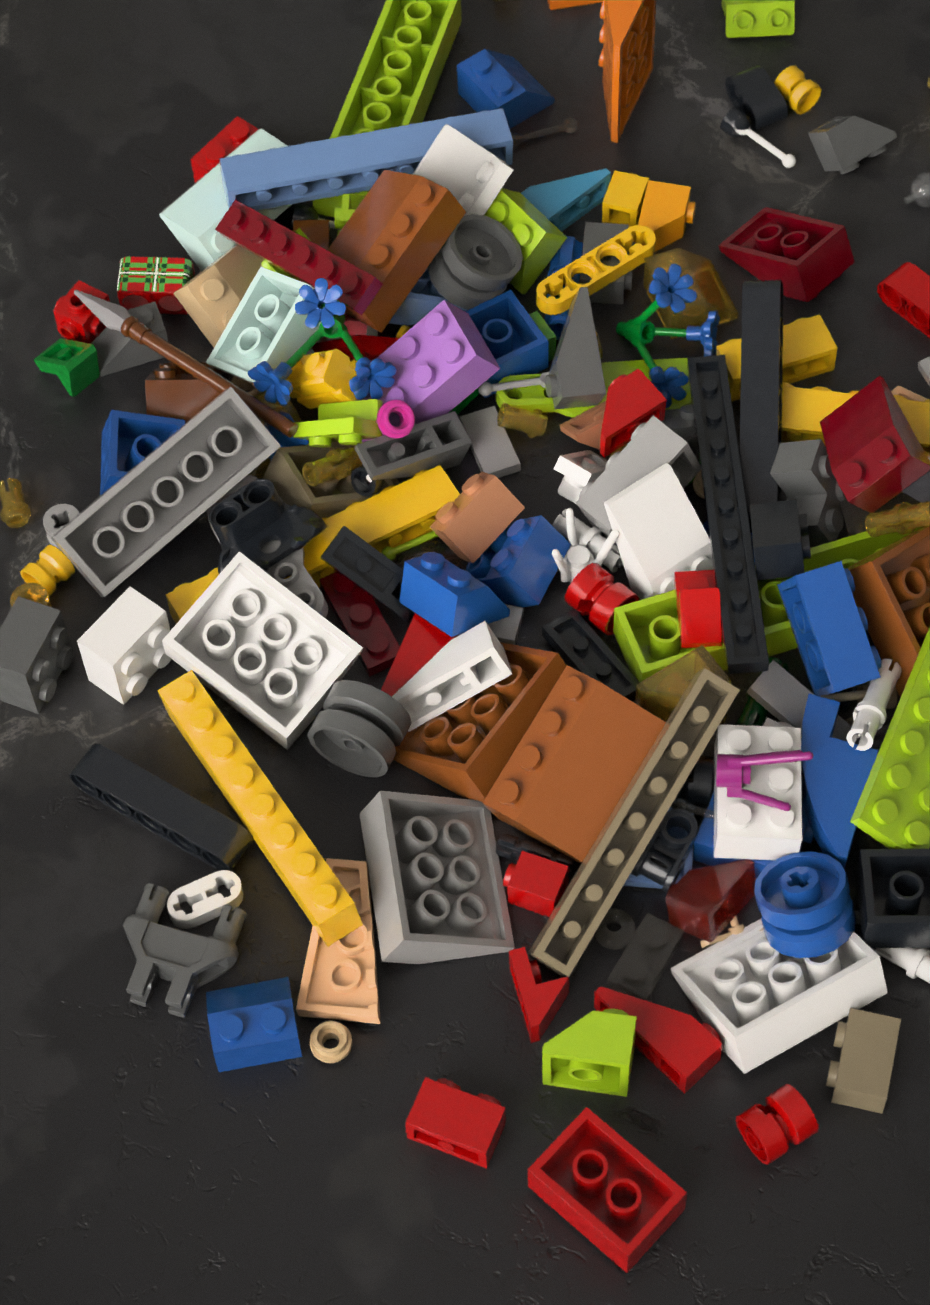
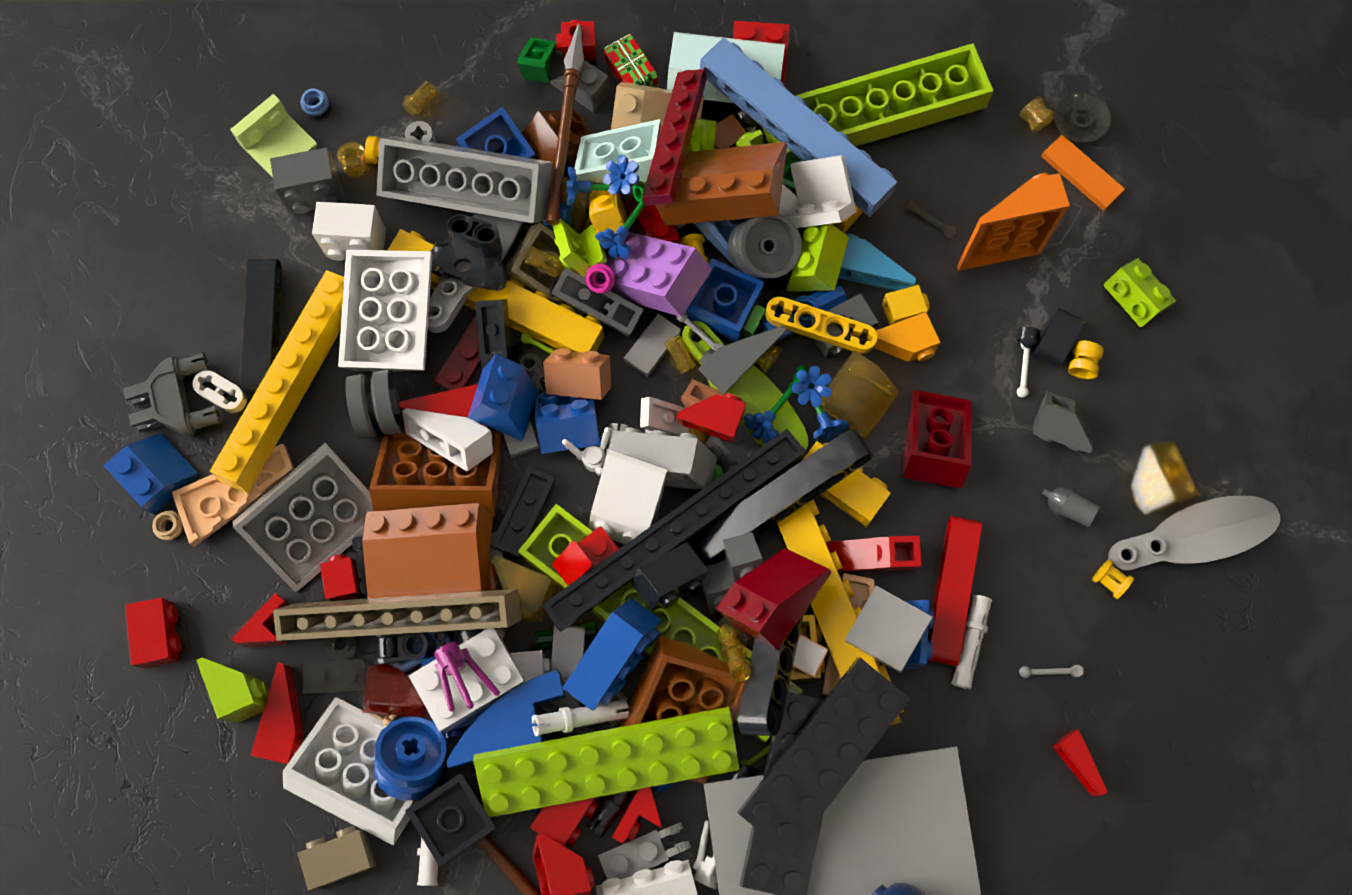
camera: 55 degrees right, 15 degrees up
(499, 81) = (945, 170): blue slope -> none
(598, 595) = (572, 487): red wheel -> none
(606, 1189) = (151, 752): red brick -> none
(773, 1126) = (257, 829): red wheel -> none
(882, 352) = (878, 554): none -> red slope

